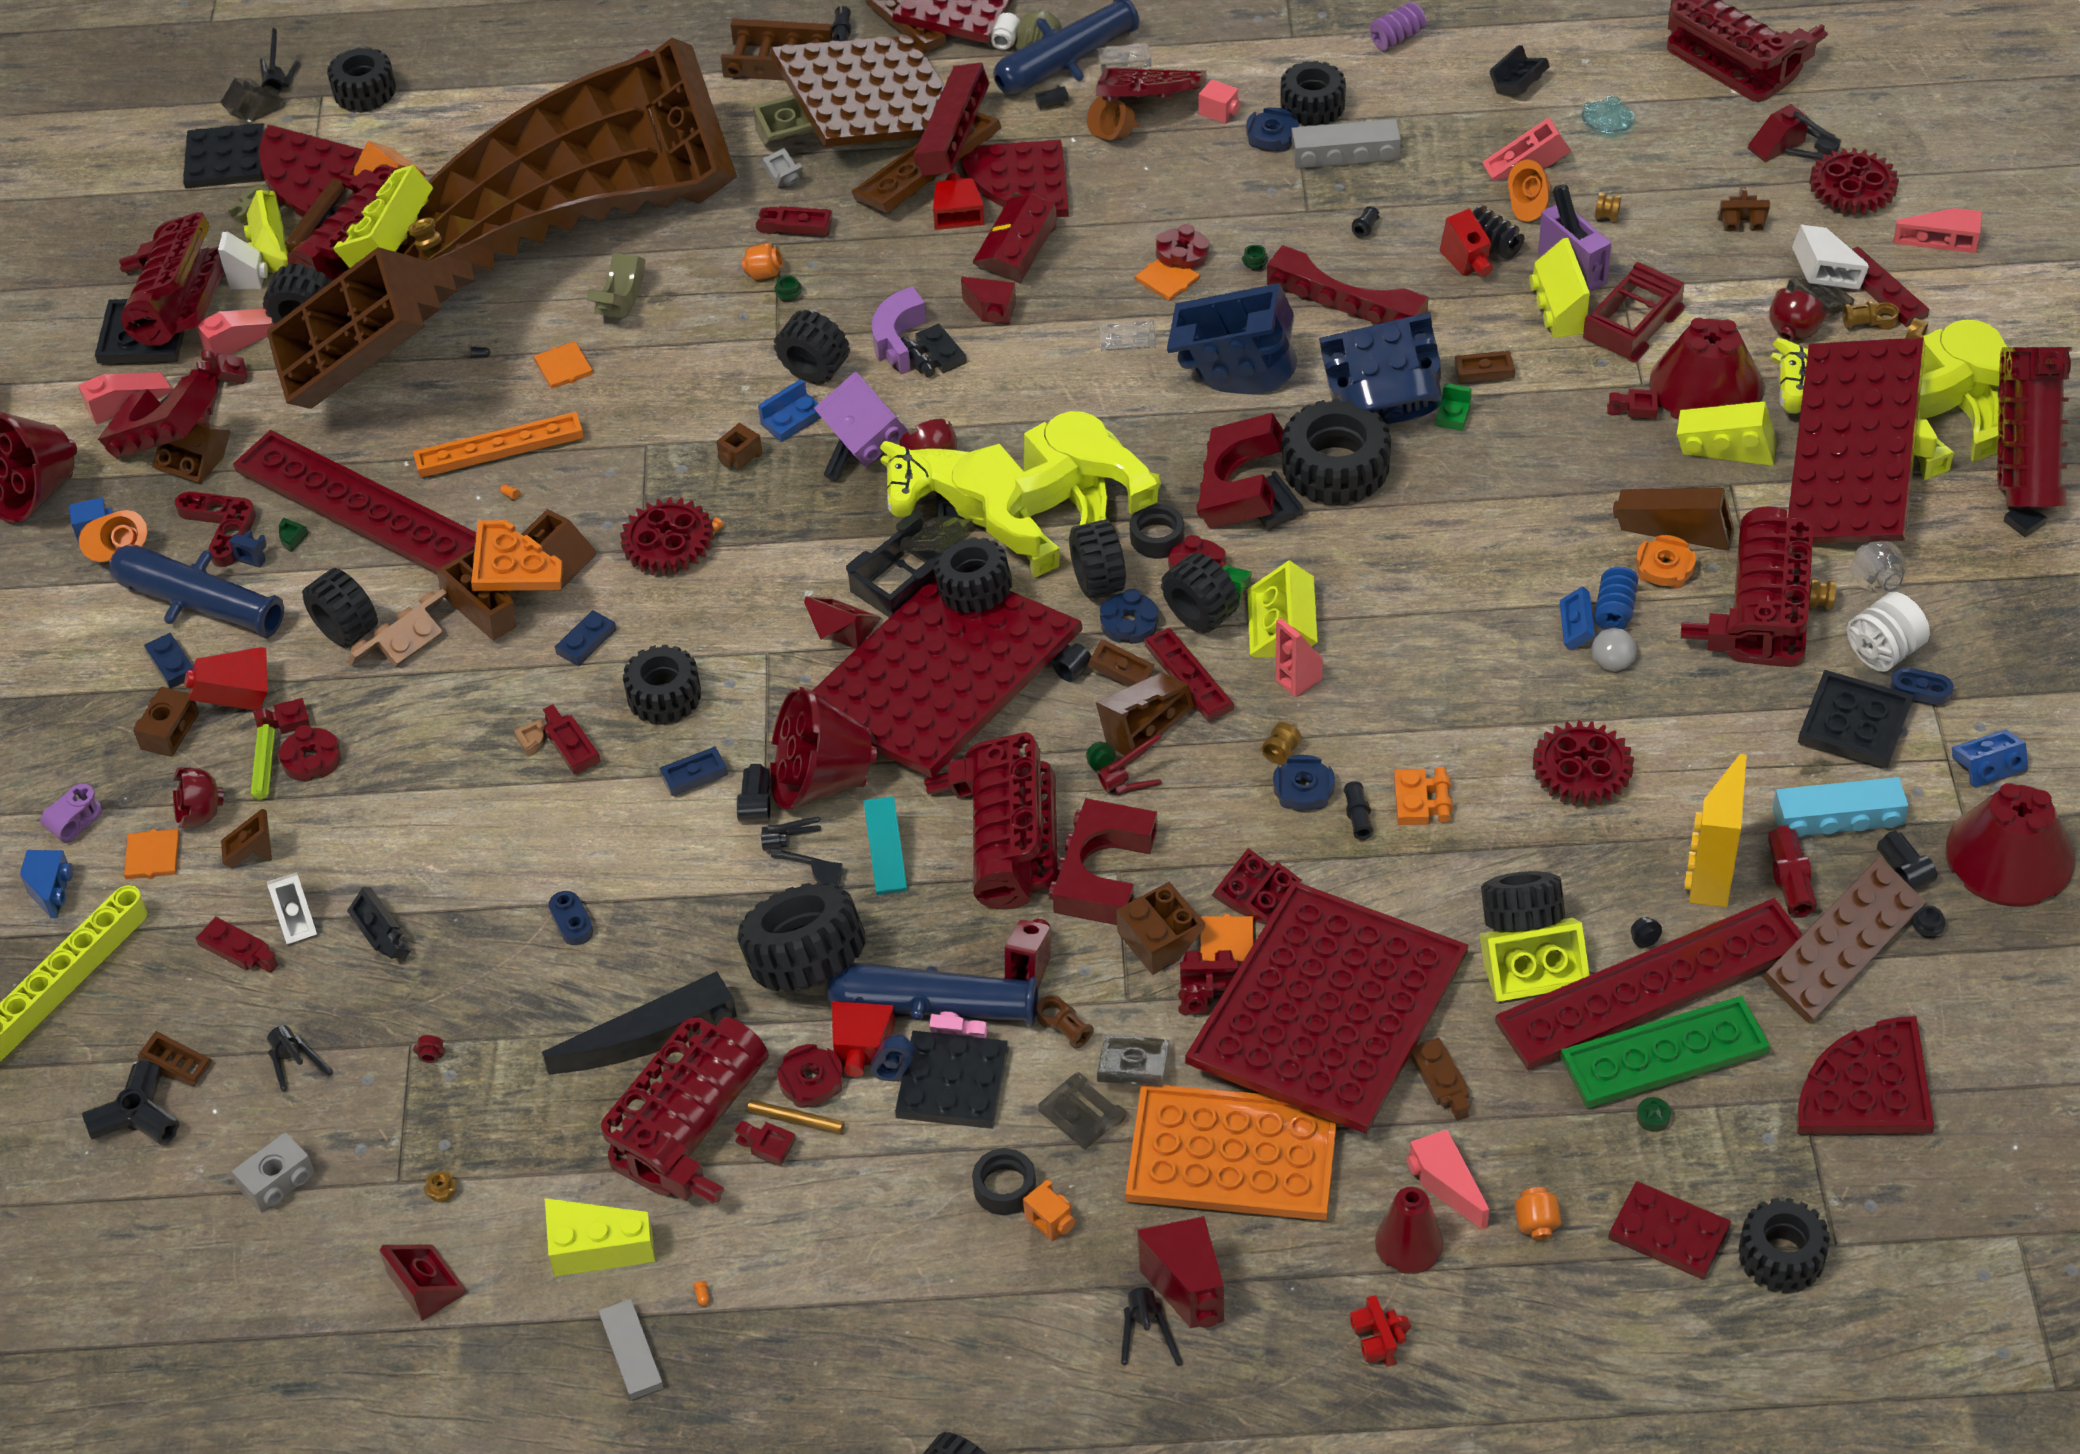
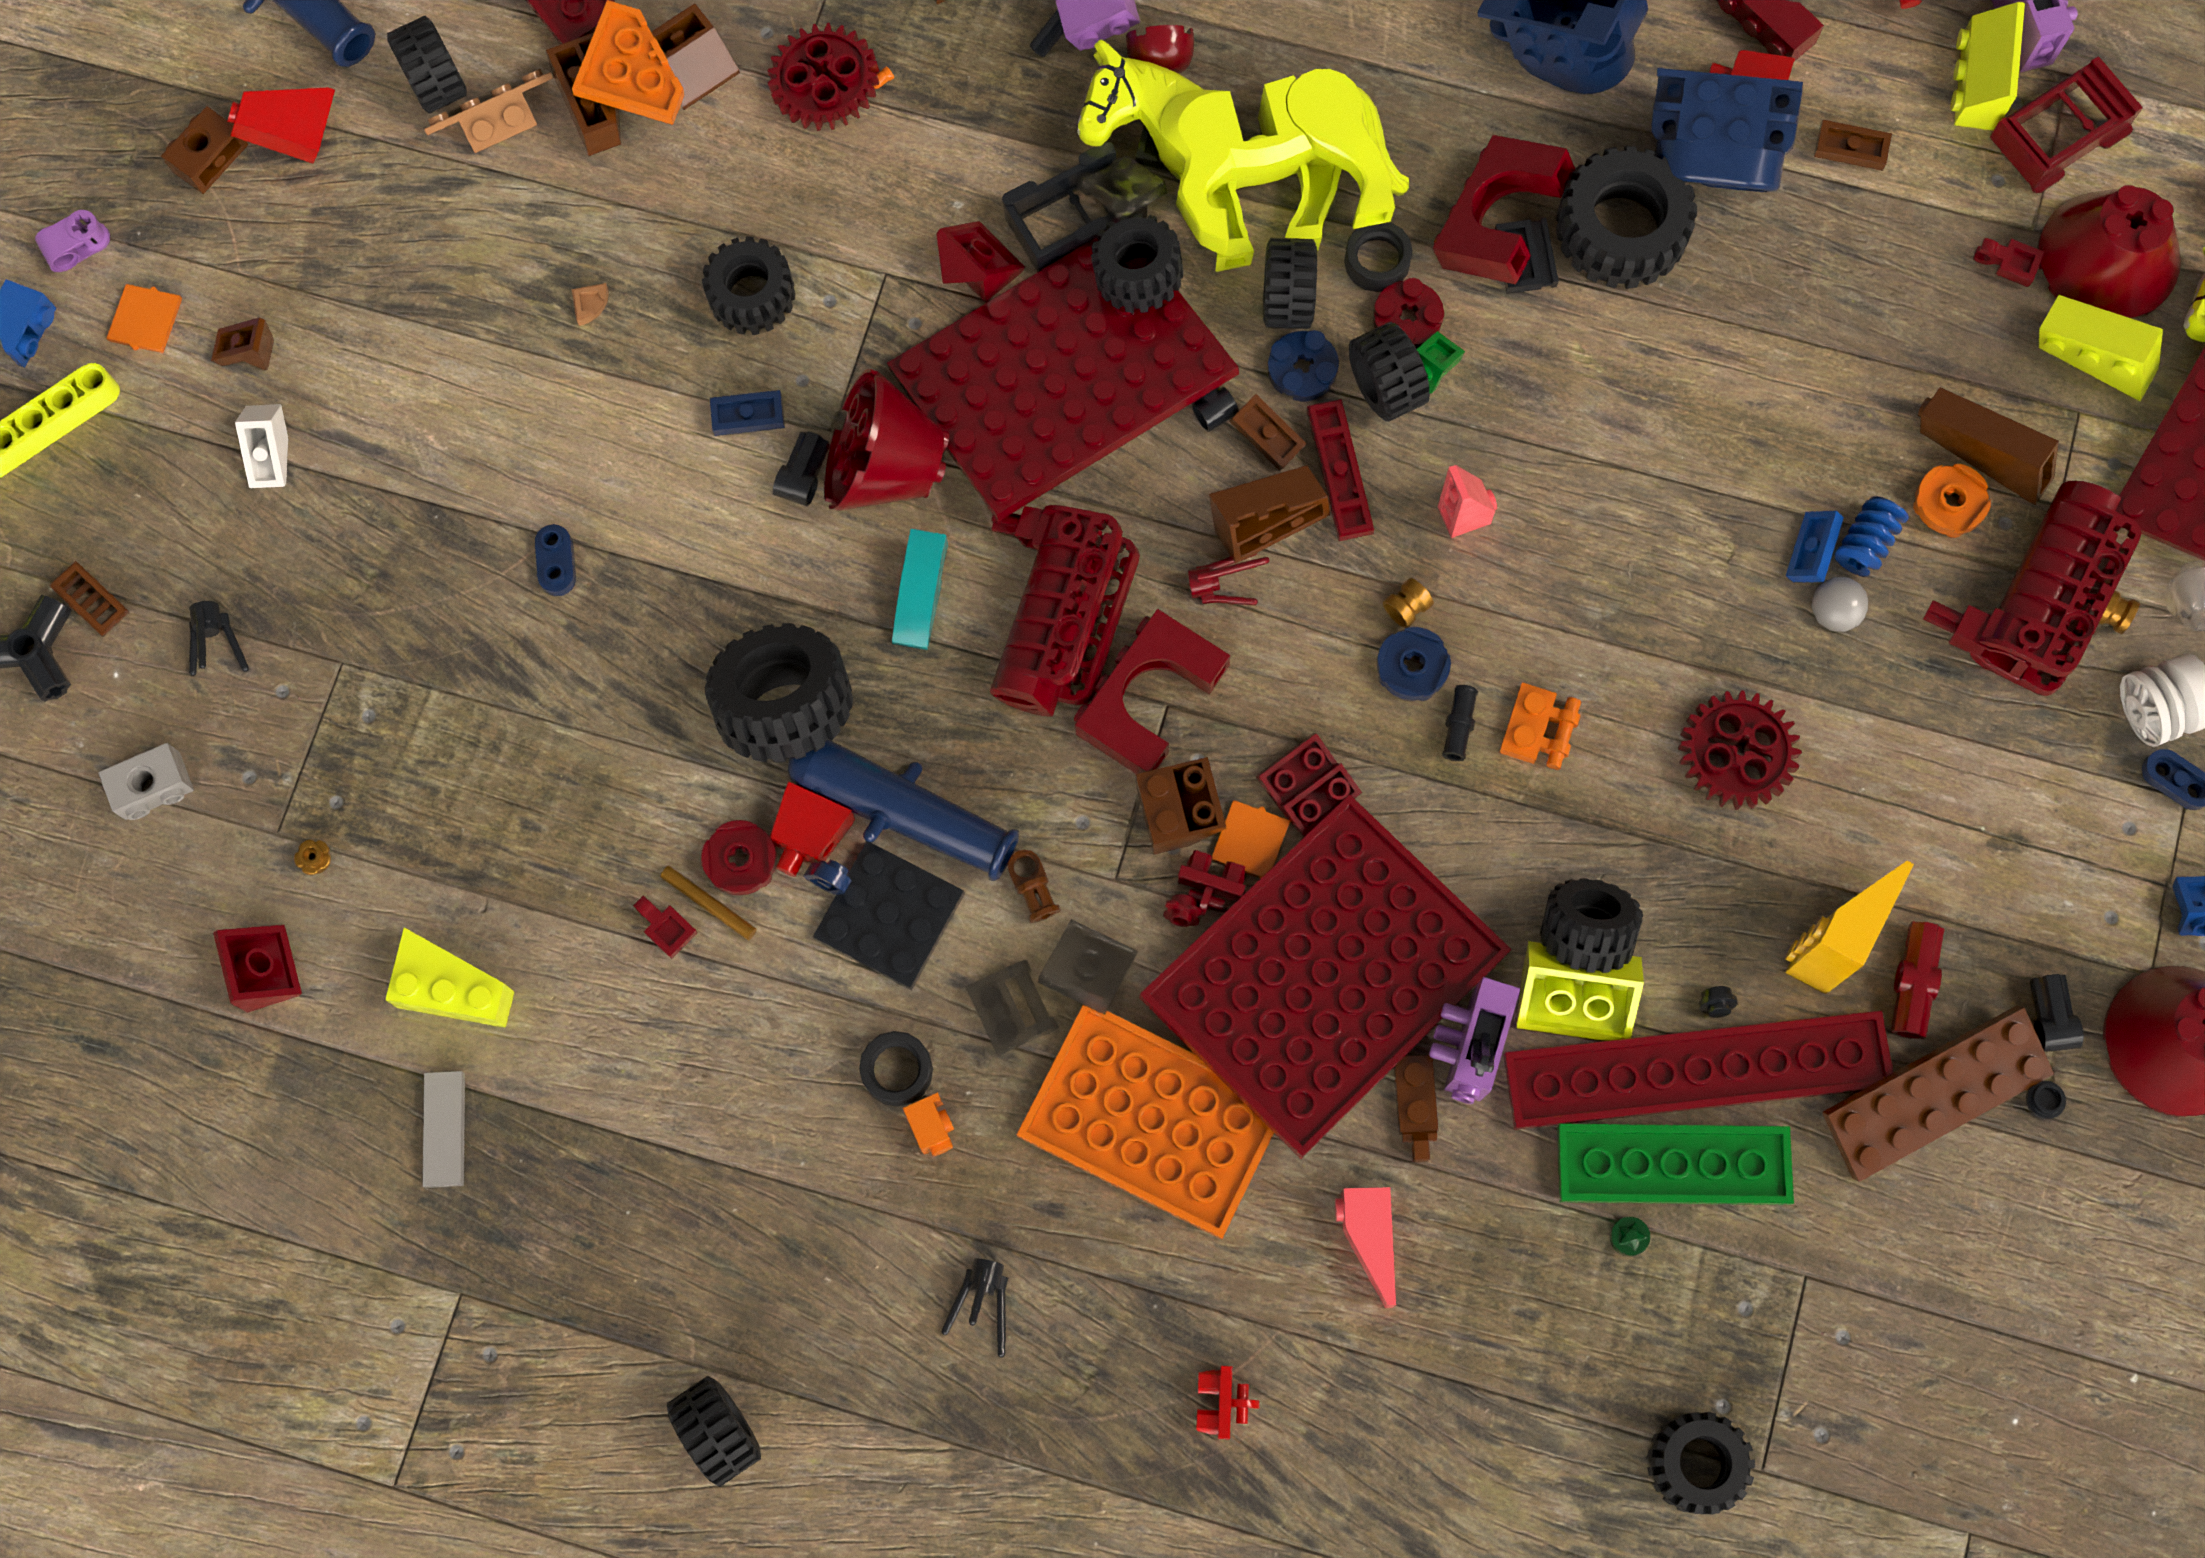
camera: 20 degrees right, 25 degrees up
(168, 659) = (235, 62): dark blue plate -> none
(196, 797) = (205, 267): dark red cylinder -> none
(236, 946) = (195, 472): dark red hinge -> none
(262, 762) = (292, 238): lime axle -> none
(286, 716) = (337, 184): dark red plate -> none
(307, 740) = (341, 225): dark red plate -> none
(378, 924) = (347, 502): black hinge -> none
(429, 1048) = (353, 680): dark red plate -> none
(570, 740) = (626, 324): dark red hinge -> none
(585, 638) = (691, 186): dark blue plate -> none
(642, 1029) = (592, 738): black slope -> none
(682, 1106) = (584, 861): dark red piece -> none
(701, 1292) = (538, 1087): orange piece -> none
(777, 837) = (809, 535): black plant -> none
(827, 871) = (847, 601): black tile -> none
(953, 1024) = (908, 852): bright pink plate -> none
(1032, 942) = (1022, 790): dark red torso -> none
(1100, 755) = (1199, 549): dark green plate -> none
(1184, 1269) = (1043, 1260): dark red slope -> none
(1285, 595) = (1478, 421): neon yellow slope -> none
(1409, 1233) = (1290, 1312): dark red cone -> none
(1455, 407) = (1794, 194): green bracket -> none
(1473, 1007) = (1478, 1042): none -> medium lavender piece
(1537, 1213) = (1450, 1320): orange head -> none
(1669, 1230) = (1587, 1388): dark red plate -> none
(1841, 806) = (2010, 915): medium azure brick -> none
(1855, 718) = (2081, 798): black plate -> none
(1869, 1084) = (1885, 1287): dark red plate -> none

